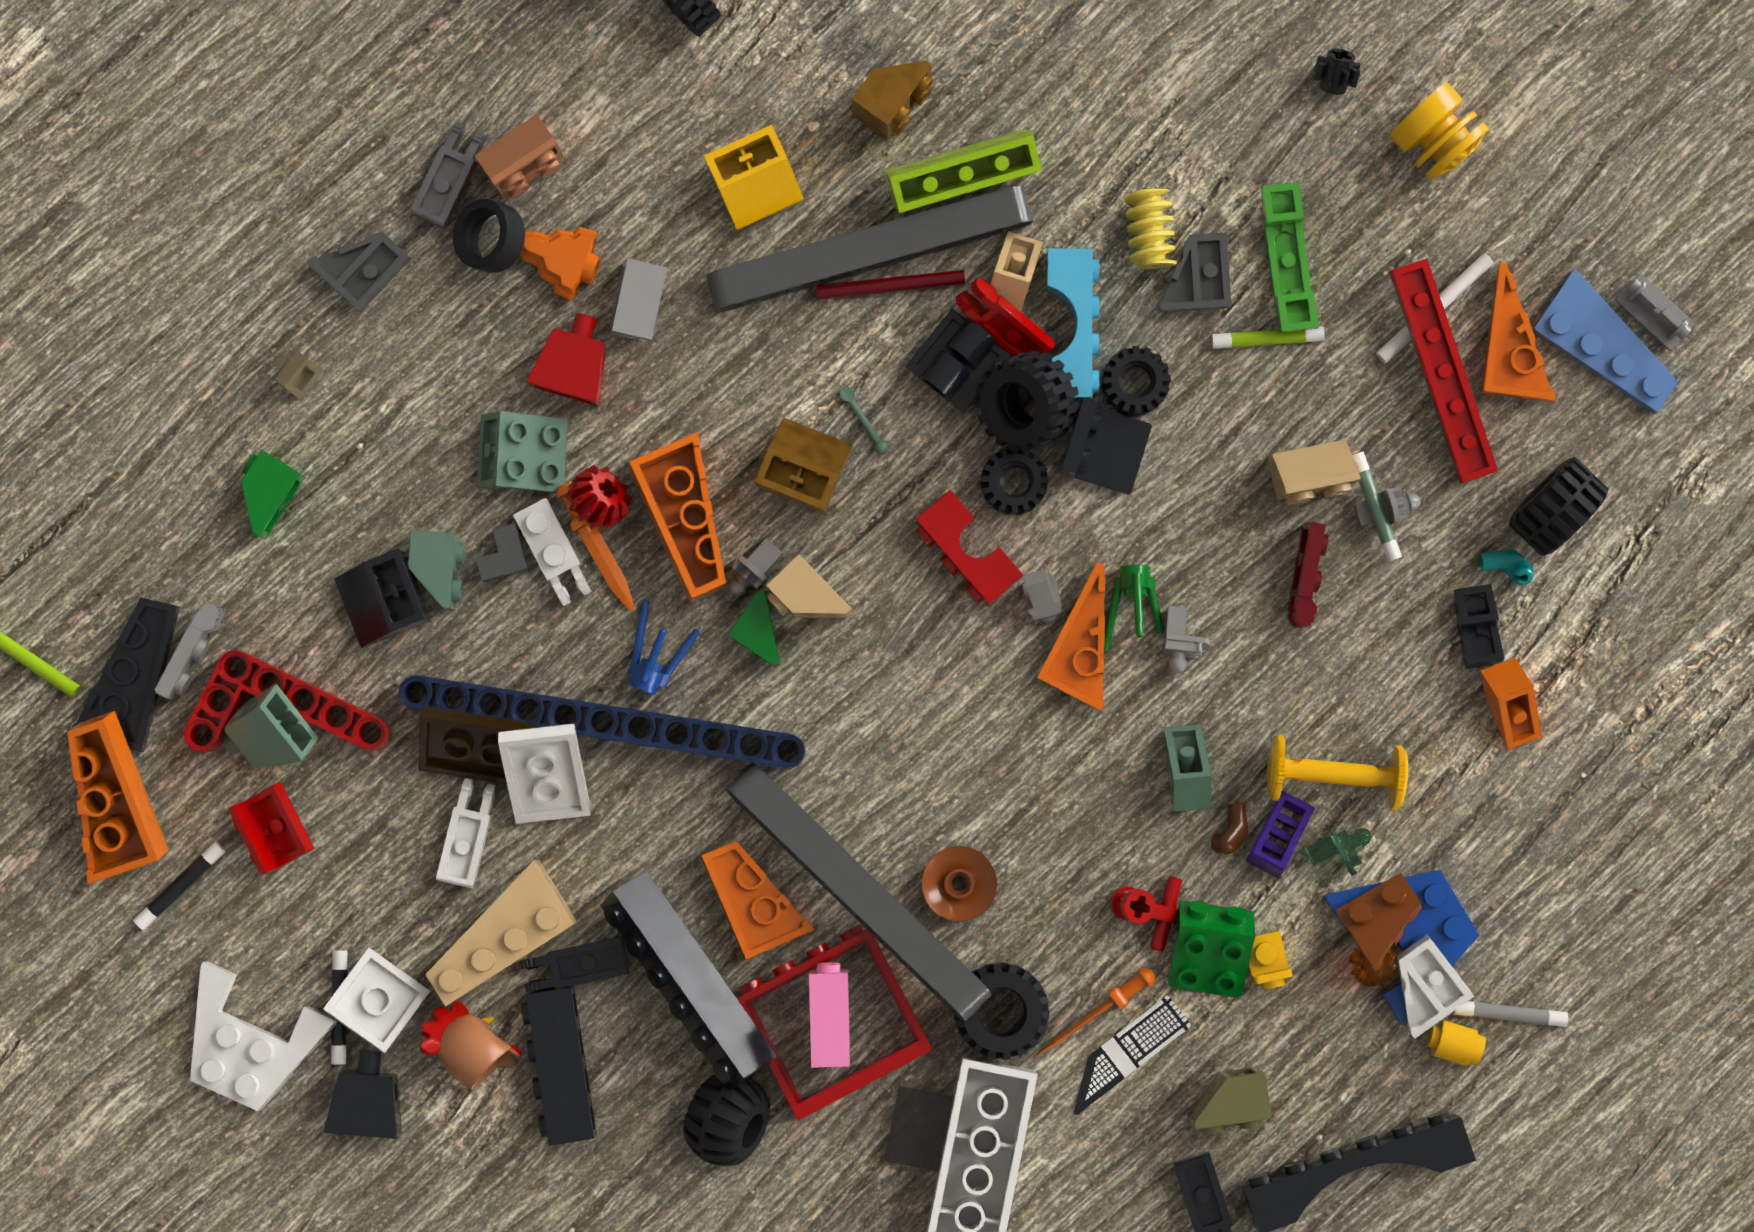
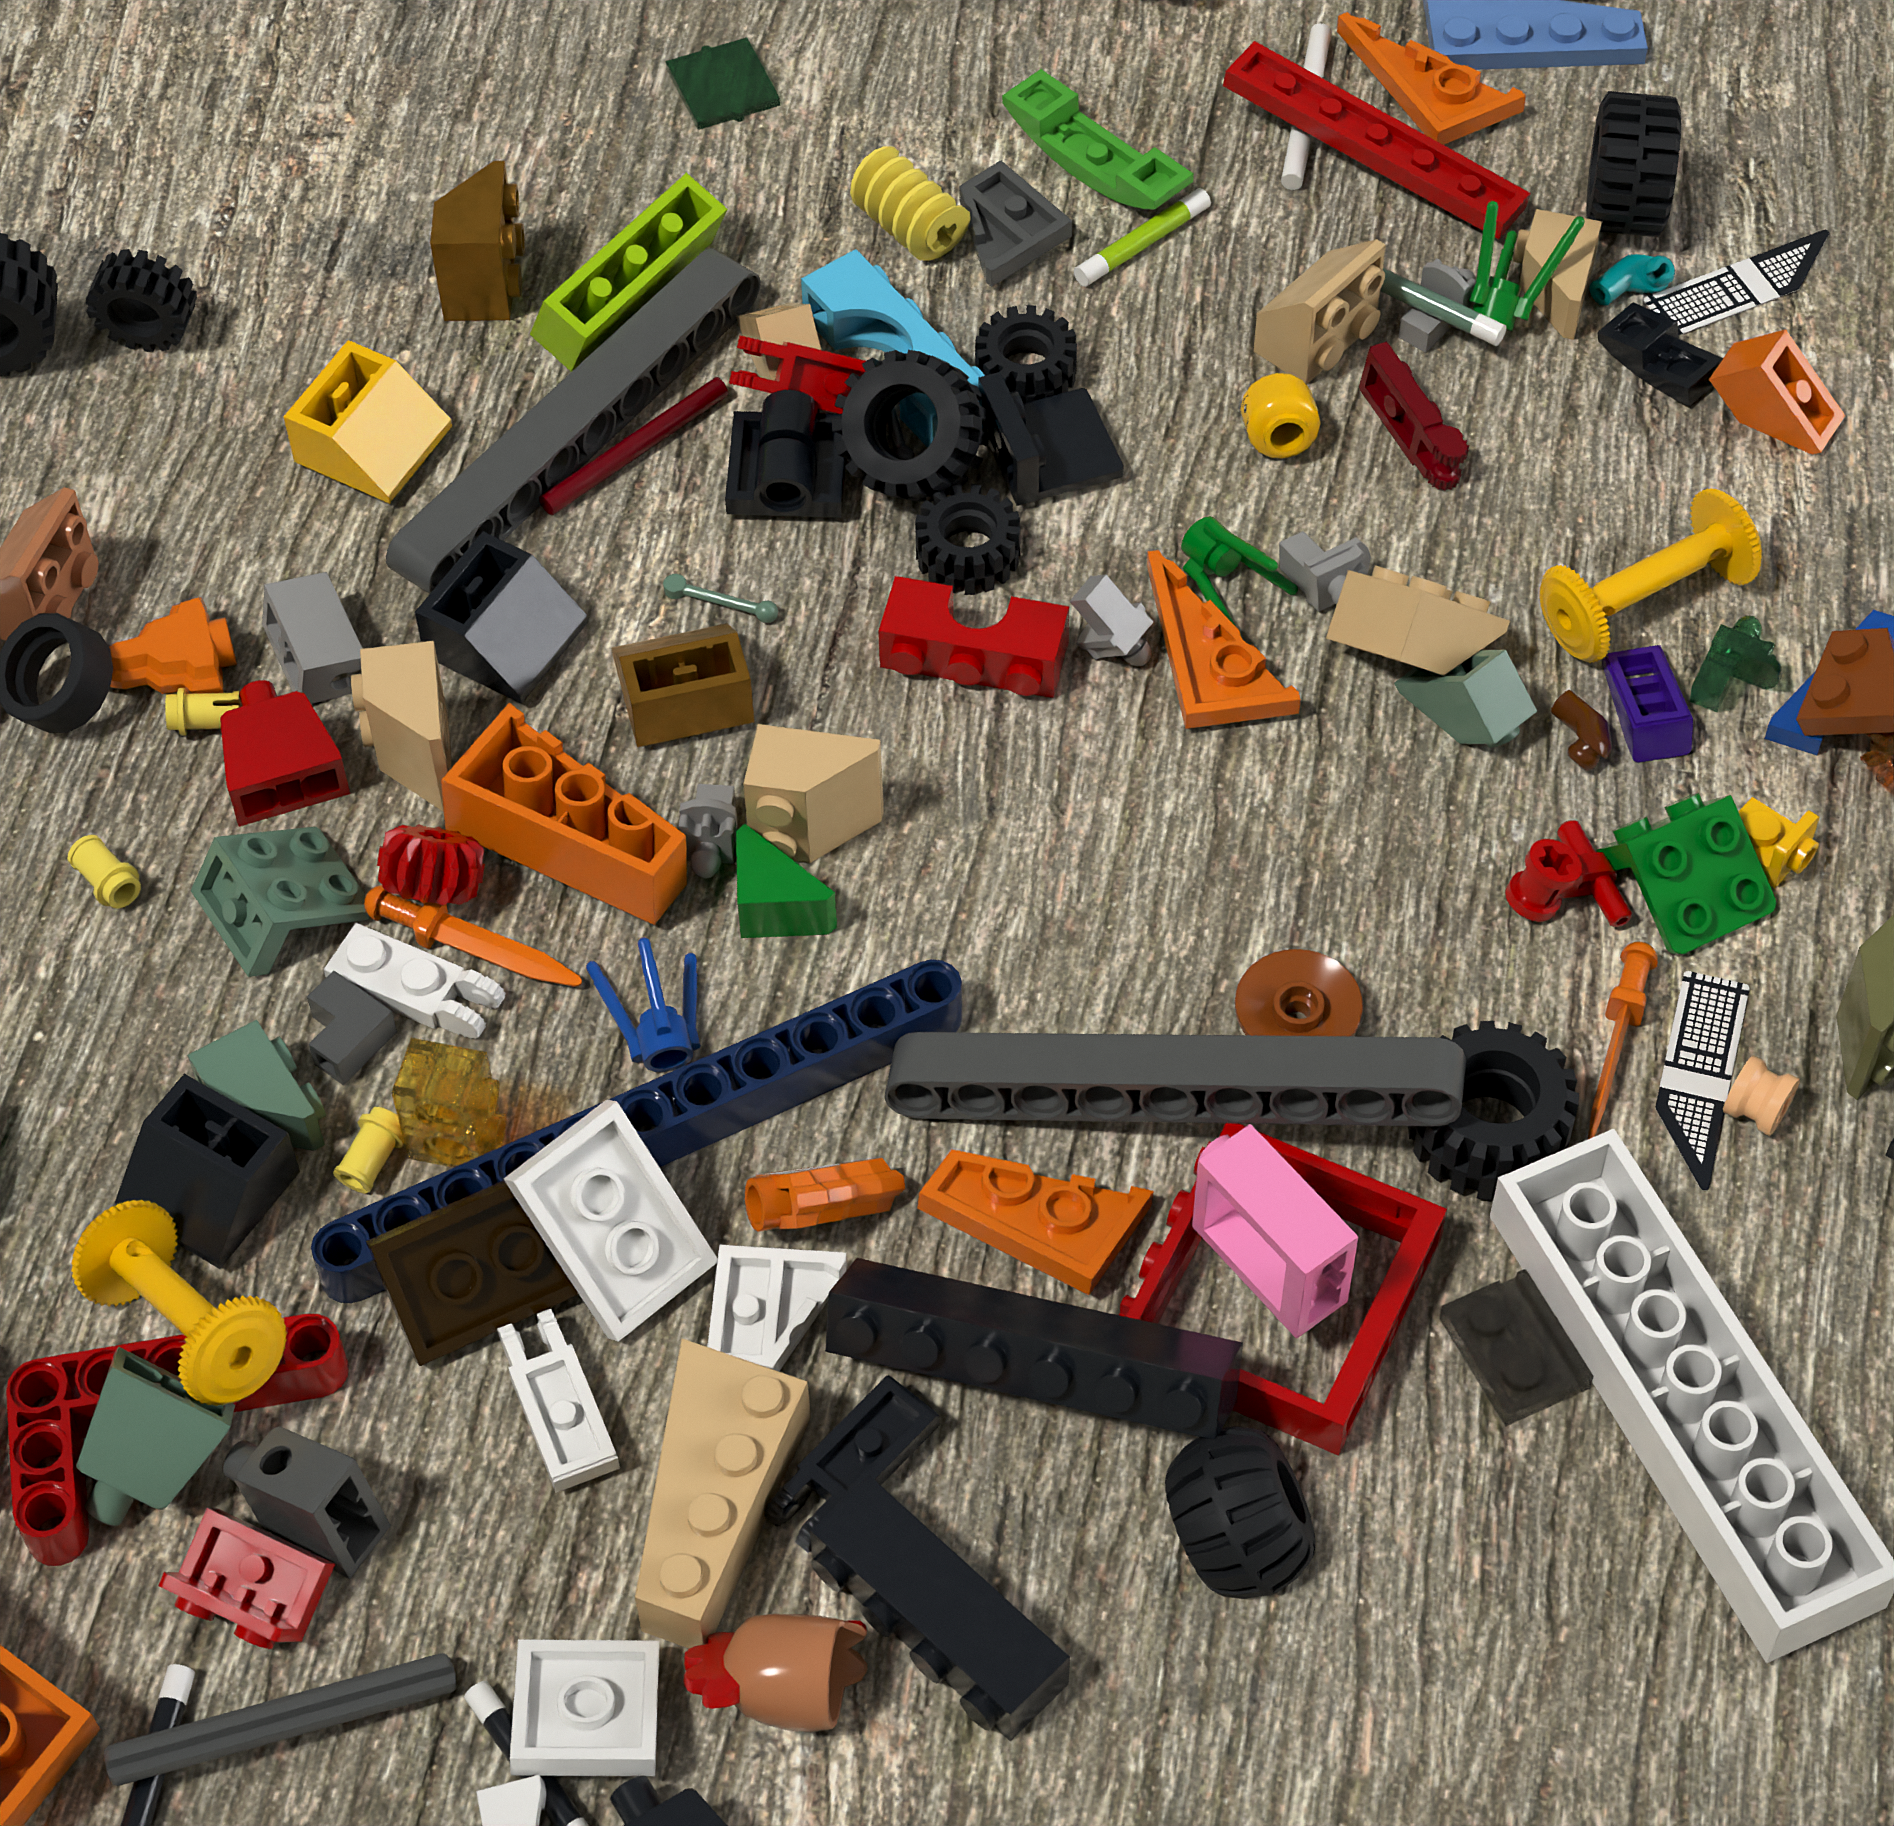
camera: 35 degrees left, 30 degrees down
(245, 907) = (279, 1719): none -> dark grey axle
(323, 619) = (226, 1348): none -> yellow hose
(326, 820) = (309, 1496): none -> dark grey torso
(444, 372) = (113, 882): none -> light yellow pin
(470, 635) = (370, 1149): none -> light yellow pin
(513, 651) = (447, 1104): none -> clear yellow brick
(552, 305) = (198, 710): none -> light yellow pin
(592, 857) = (769, 1300): none -> white wing
(644, 401) = (405, 715): none -> tan slope
(655, 820) = (821, 1194): none -> orange rock
(736, 364) = (499, 618): none -> black slope
(1123, 47) = (722, 83): none -> clear green piece
(1137, 1094) = (1761, 1095): none -> light nougat wheel
(1188, 715) = (1412, 622): none -> tan slope
(1237, 523) = (1280, 415): none -> yellow head
(1417, 530) = (1496, 295): none -> green plant
(1470, 532) = (1566, 289): none -> tan slope
(1564, 608) = (1739, 285): none -> sticker

